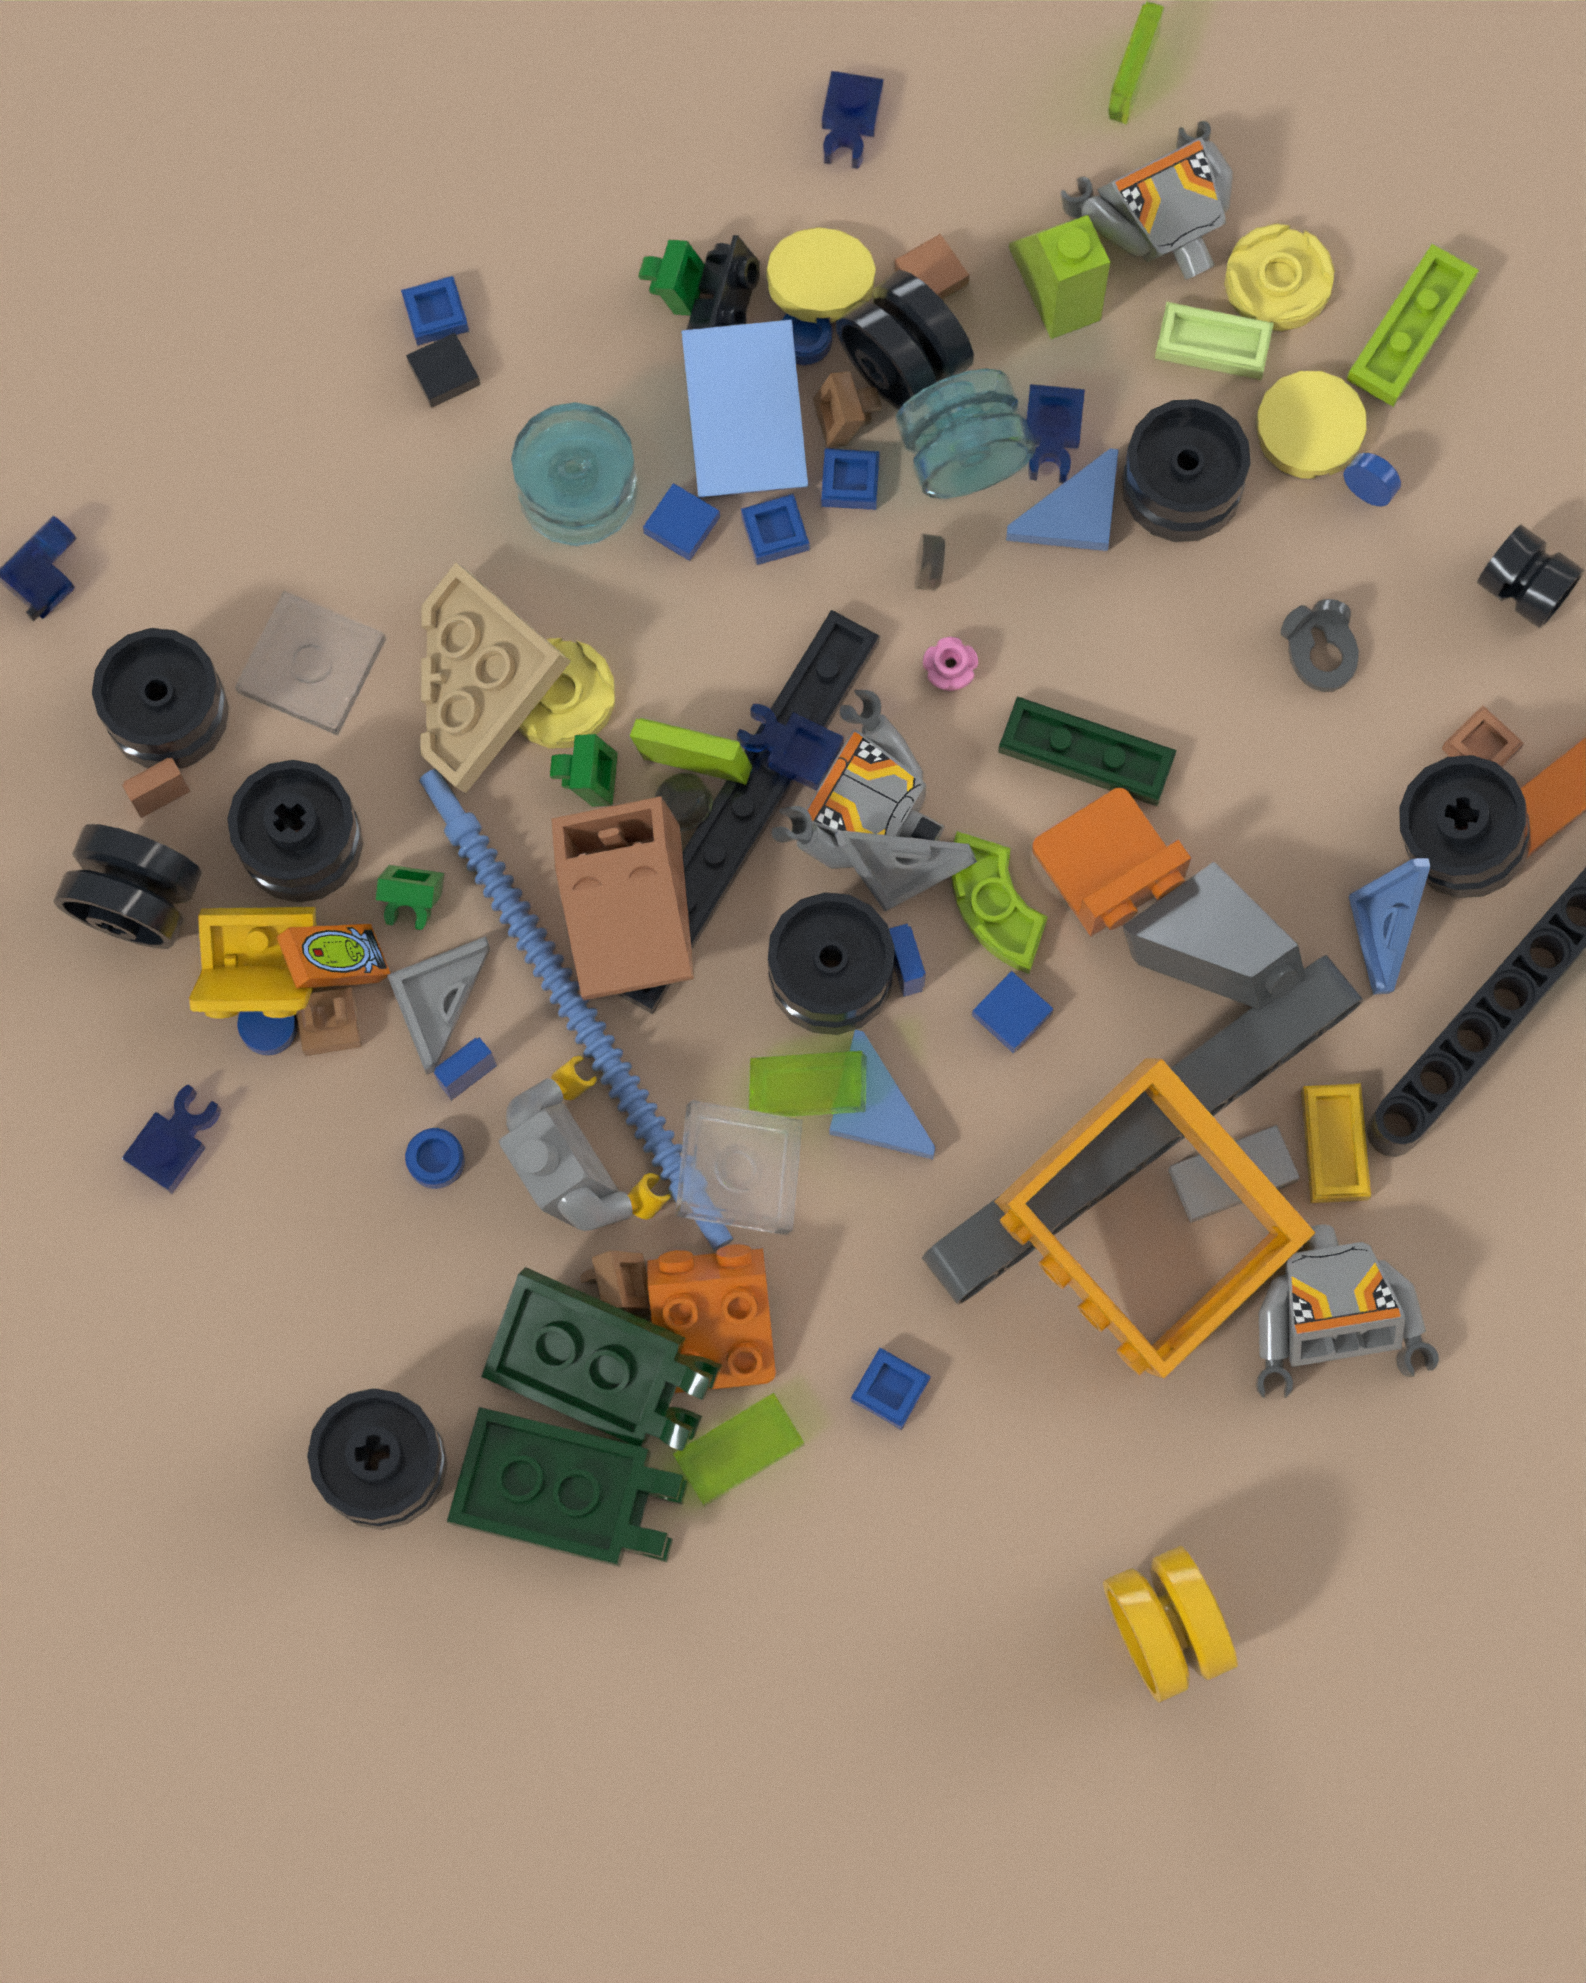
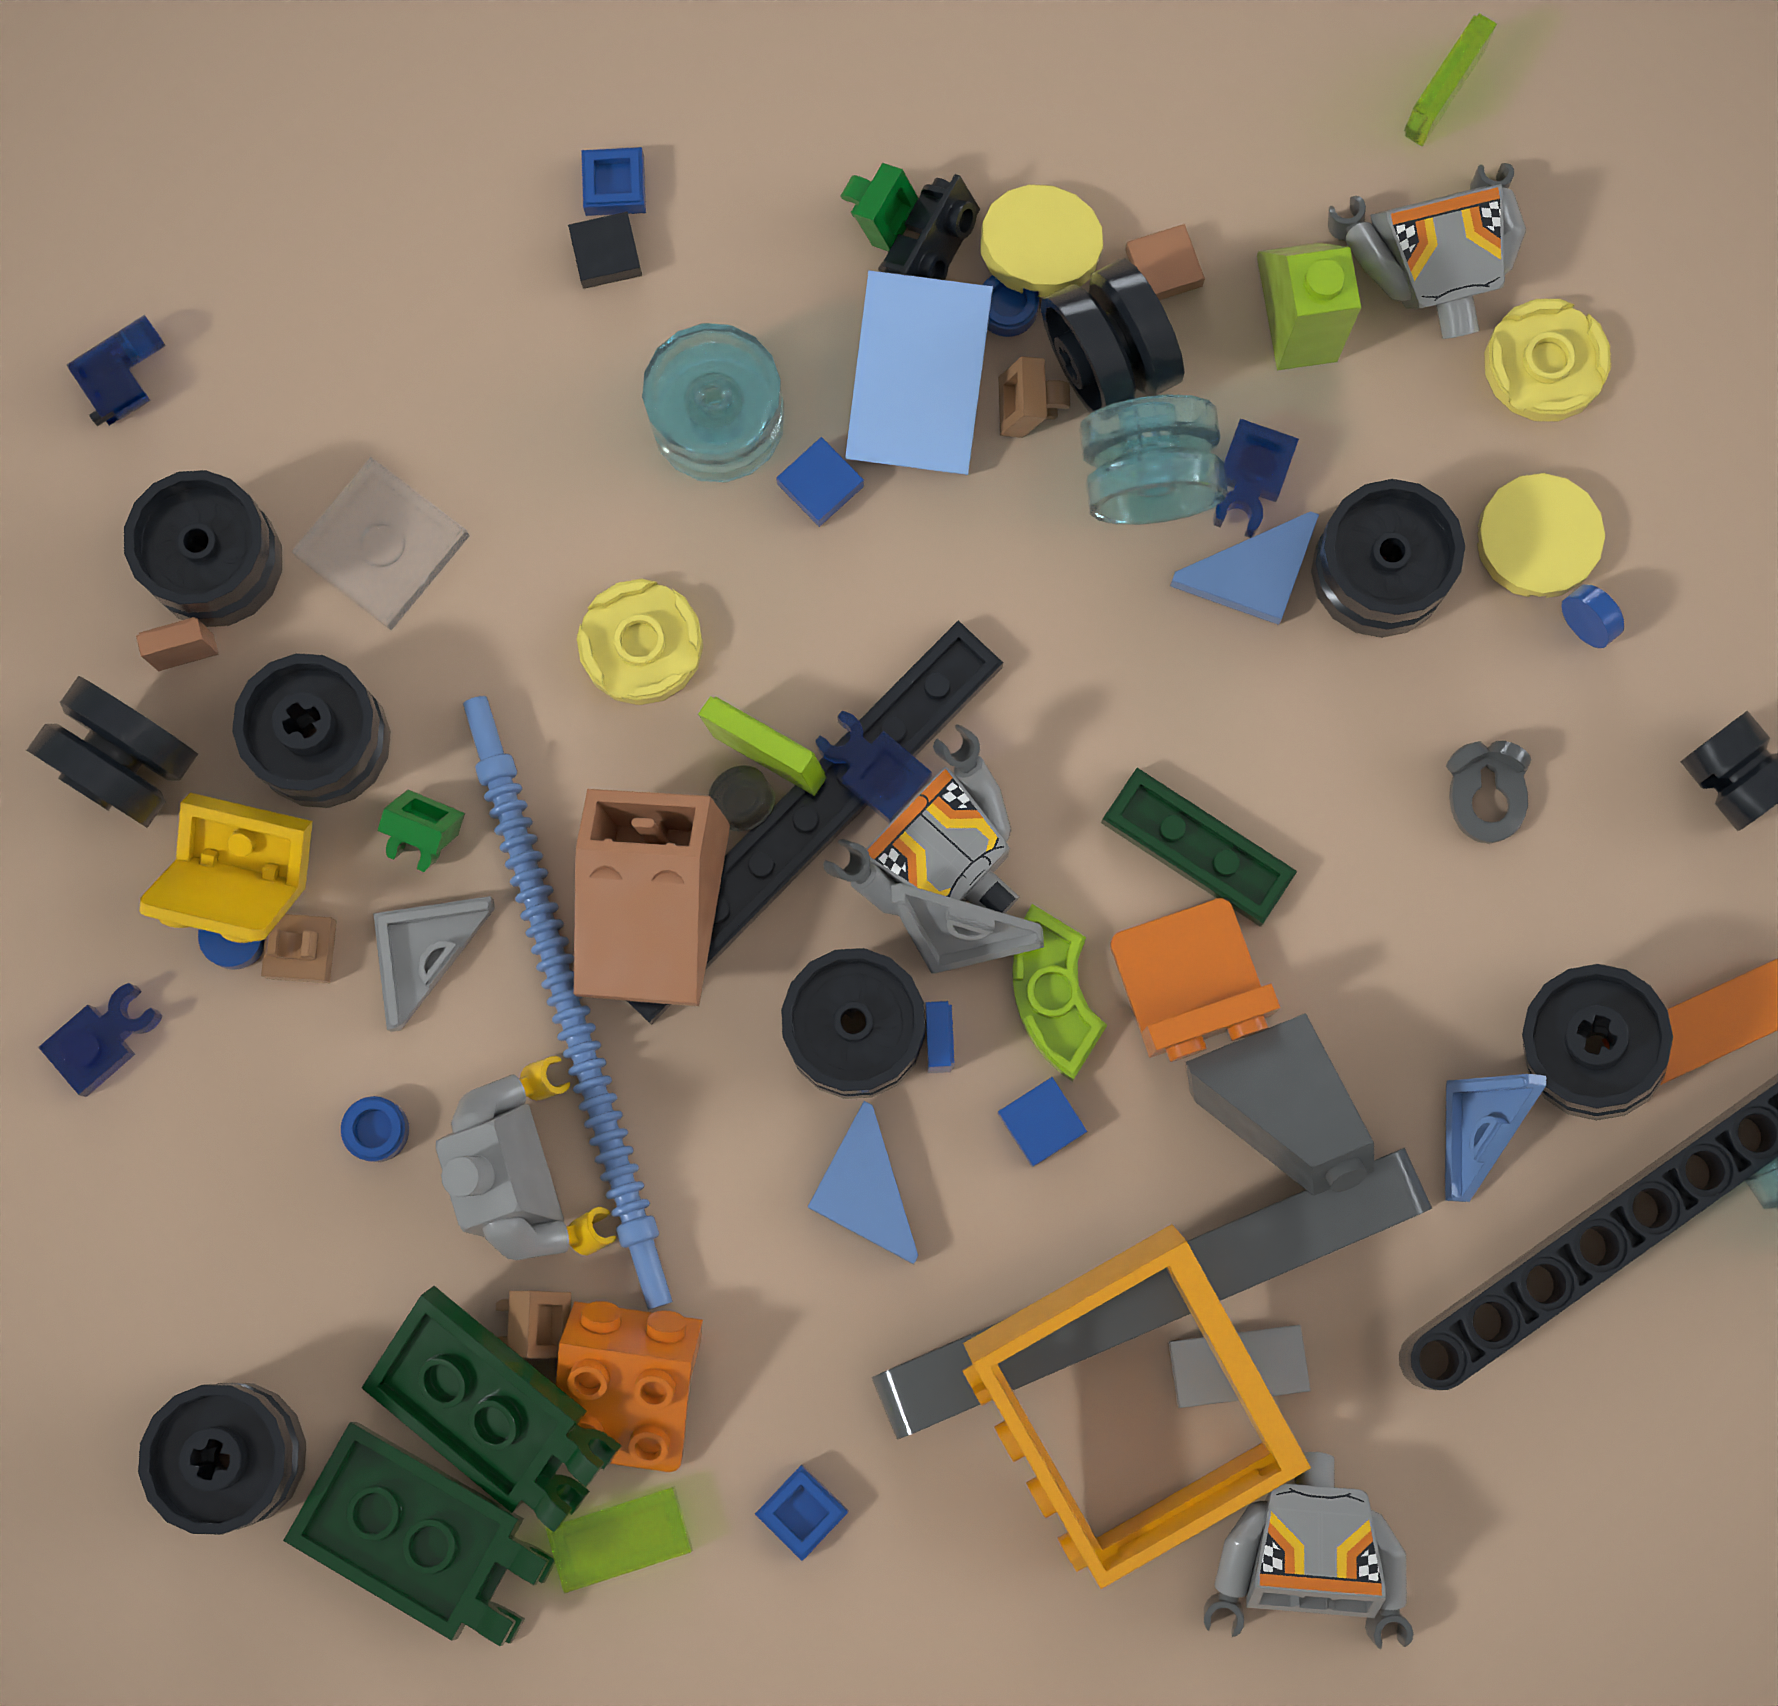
camera: 15 degrees right, 5 degrees up
(333, 955) = (315, 882): tile -> none
(464, 1068) = (428, 1040): blue tile -> none
(478, 675) = (554, 604): tan plate -> none
(588, 771) = (647, 739): green tile -> none
(739, 1167) = (697, 1227): clear tile -> none
(775, 529) = (920, 514): blue tile -> none
(808, 1084) = (796, 1151): clear neon green tile -> none
(850, 111) = (1121, 63): clear blue plate -> none
(850, 479) = (1016, 477): blue tile -> none
(929, 562) = (1078, 593): clear smoke tile -> none
(957, 676) = (1067, 728): bright pink plate -> none
(1214, 340) = (1457, 415): yellowish green tile -> none
(1335, 1143) = (1361, 1359): yellow tile -> none
(1412, 325) = (1682, 450): lime plate -> none
(1485, 738) = (1640, 944): nougat tile -> none

